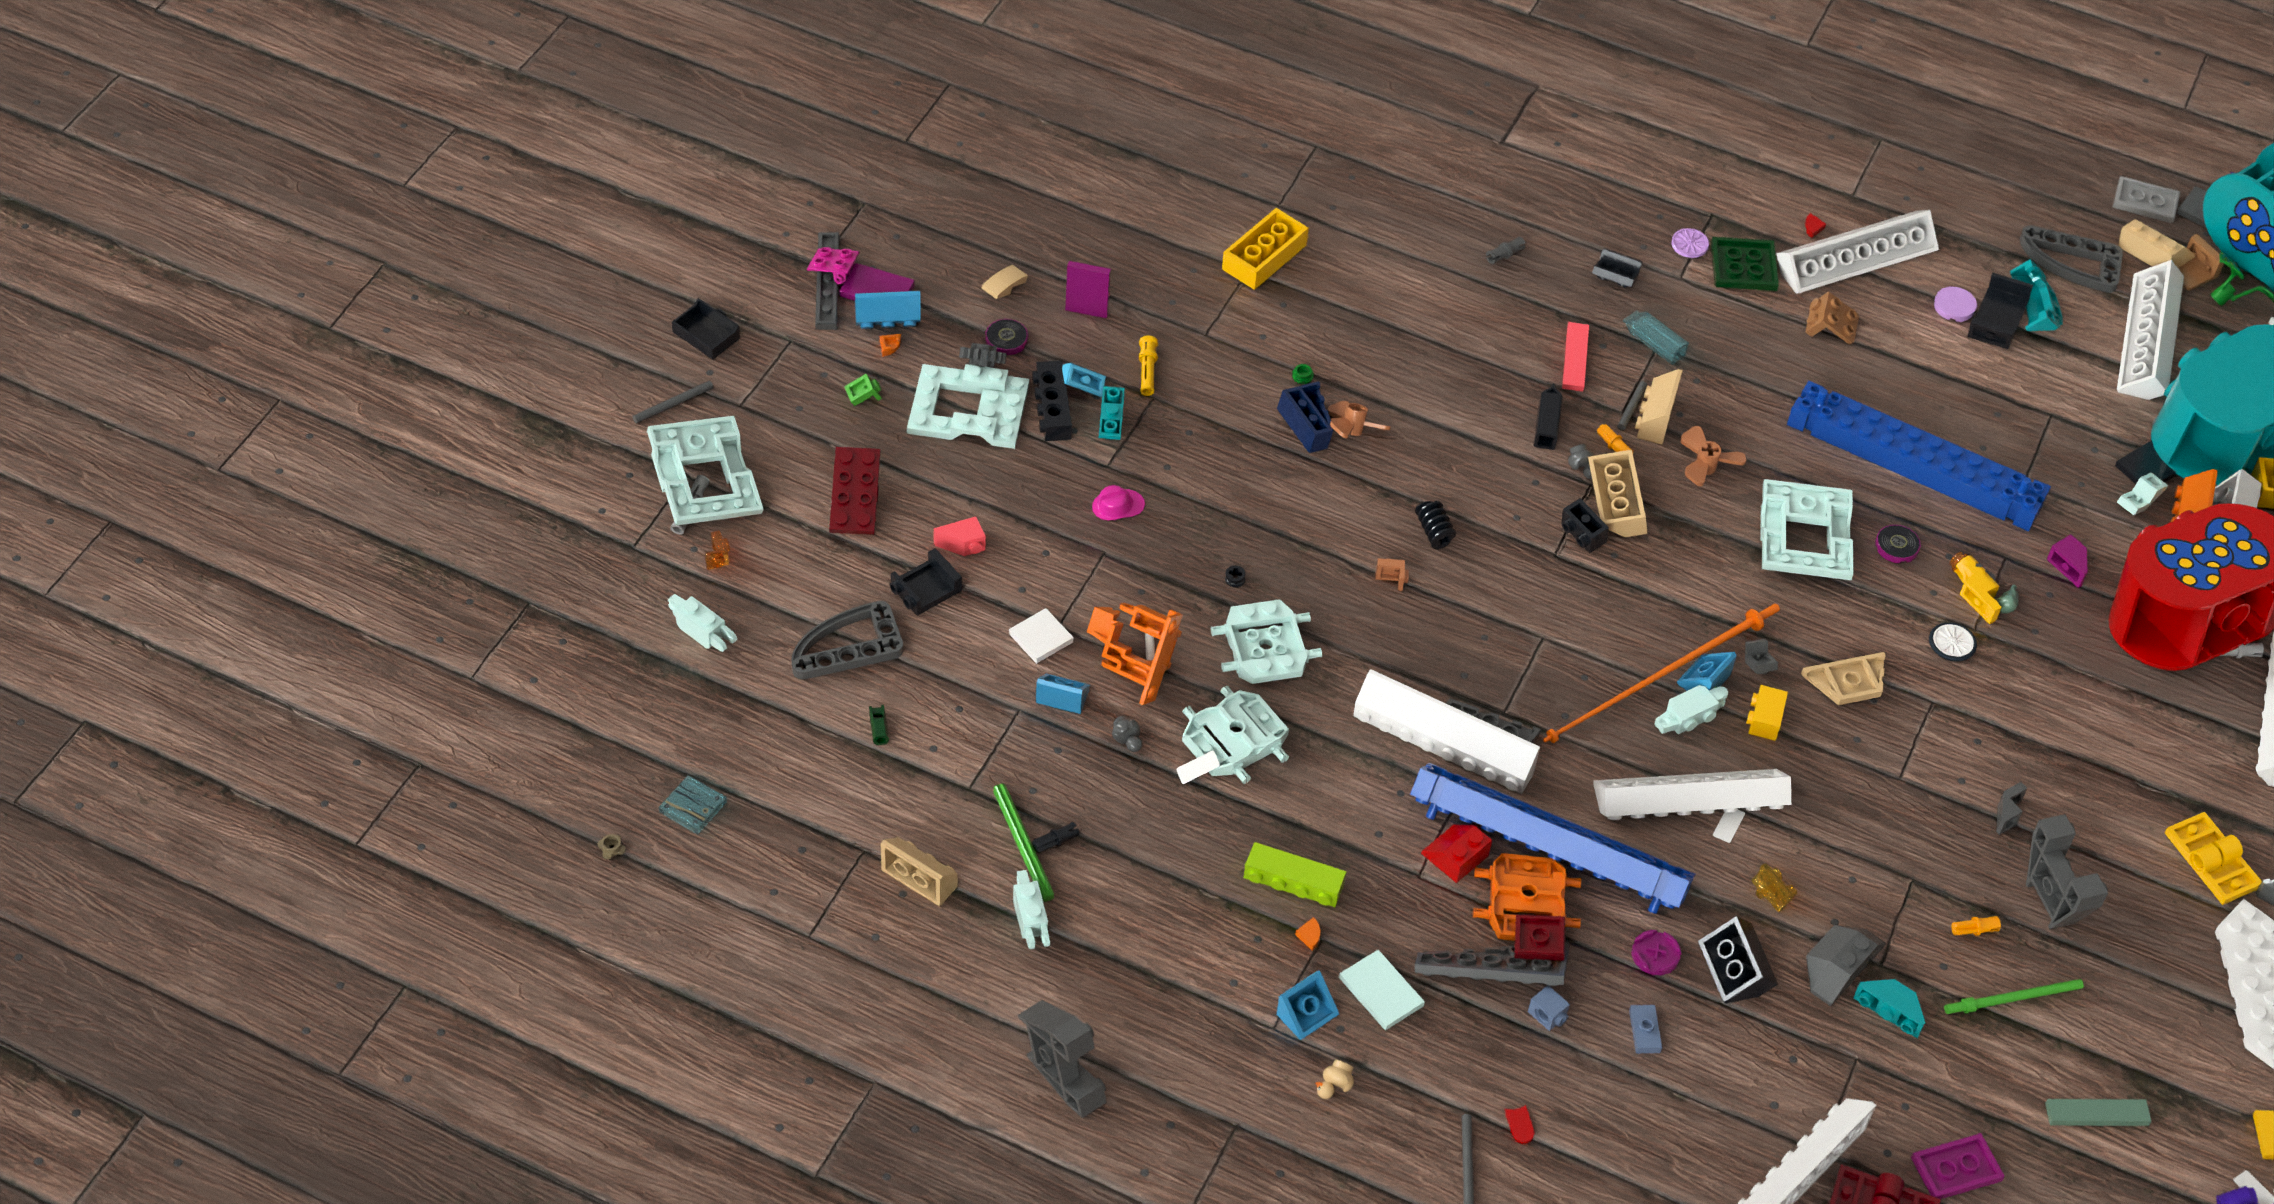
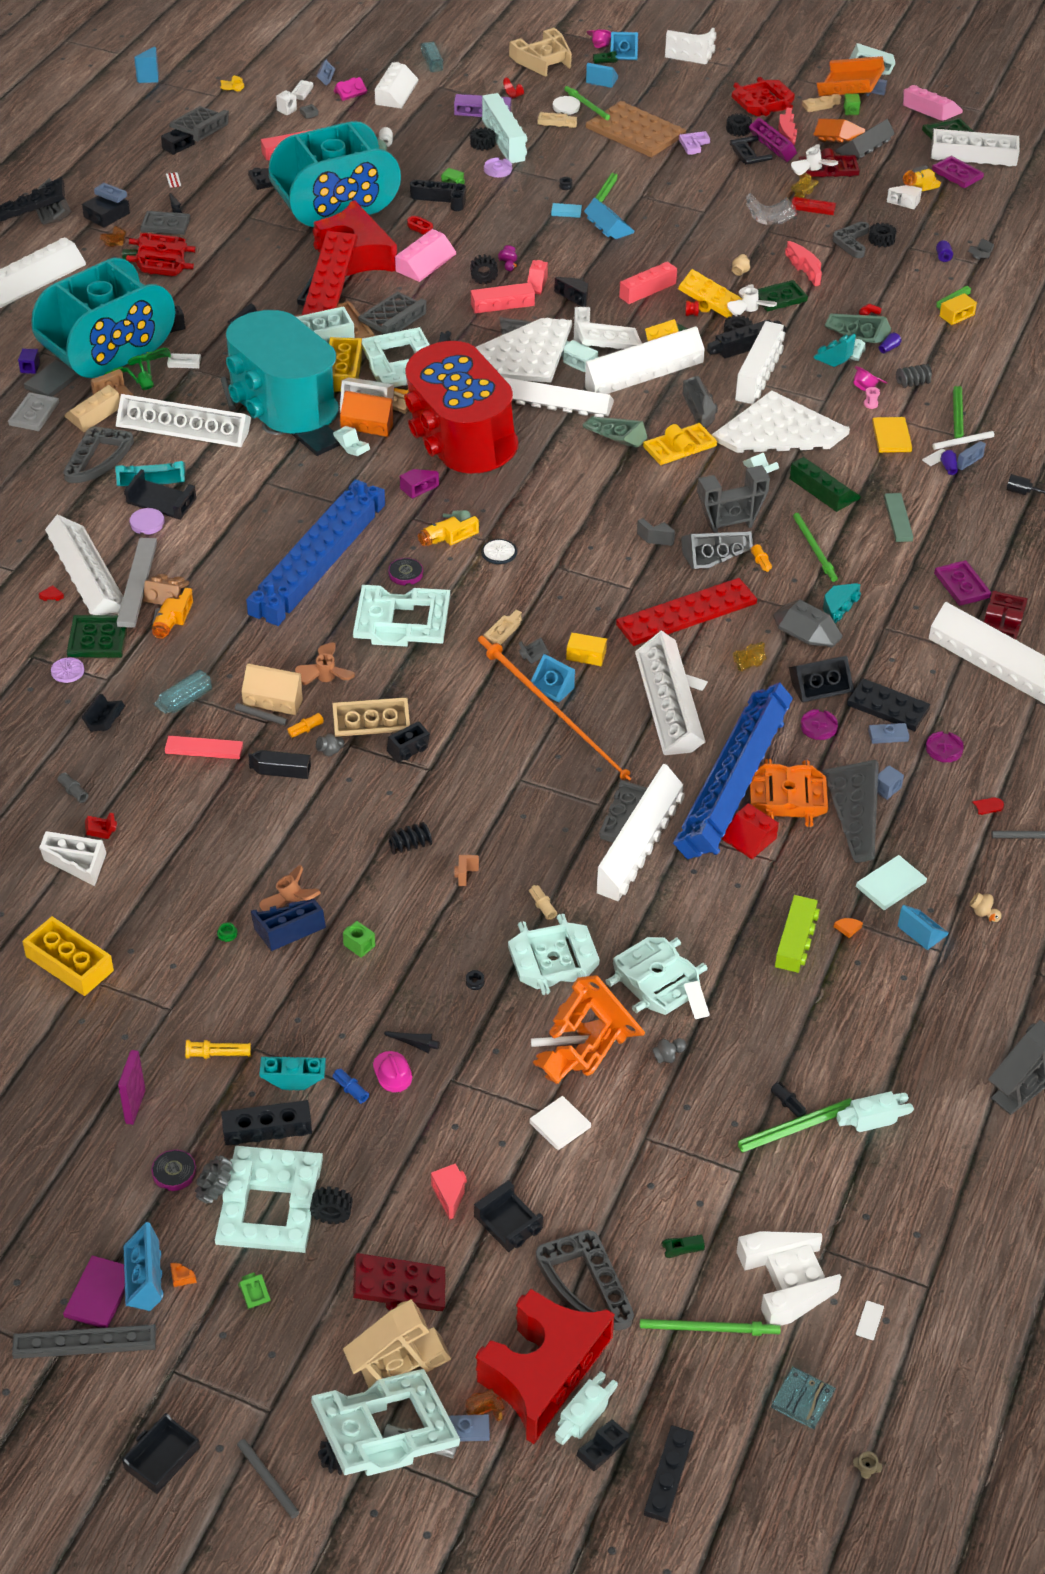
camera: 90 degrees left, 5 degrees down
(630, 688) = (669, 1474): none -> black plate
(666, 640) = (603, 1445): none -> black slope
(699, 540) = (471, 1427): none -> sand blue plate
(751, 604) = (544, 1380): none -> red piece
(767, 457) = (396, 1345): none -> tan wedge
(775, 772) = (755, 1328): none -> bright green bar
(775, 877) = (869, 1320): none -> white sticker
(831, 812) = (792, 1269): none -> white wedge
(834, 261) = (69, 1328): dark pink hinge -> none
(918, 870) = (849, 1196): tan slope -> none
(945, 441) = (331, 1205): none -> black tyre
(1003, 281) = (97, 1173): tan slope -> none
(1061, 693) = (625, 1100): dark azure slope -> none
(1083, 379) = (241, 1096): medium azure slope -> none
(1097, 467) = (350, 1085): none -> blue axle
(1152, 525) = (420, 1041): none -> black piece
(1289, 477) = (358, 939): none -> bright green brick
(1345, 641) = (543, 902): none -> tan axle
(1401, 250) = (74, 855): none -> white wedge
(1448, 271) = (100, 827): none -> red bracket
(1540, 937) = (833, 779): dark red tile -> none
(1624, 1090) = (944, 746): none -> magenta tile
(1691, 709) = (590, 692): light aqua hinge -> none
(1699, 1038) = (888, 704): none -> black plate
(1789, 324) = (171, 613): none -> light orange plate
(1799, 633) = (503, 628): none -> tan hinge
(1846, 293) = (135, 586): none -> light grey tile
(1849, 678) = (545, 604): tan wing -> none
(1860, 833) = (686, 611): none -> red plate
(1986, 868) = (713, 548): none -> dark grey wedge
(2155, 1024) = (822, 484): none -> dark green slope
(2184, 951) = (758, 460): none -> light aqua slope
(2219, 781) = (620, 430): none -> sand green wedge

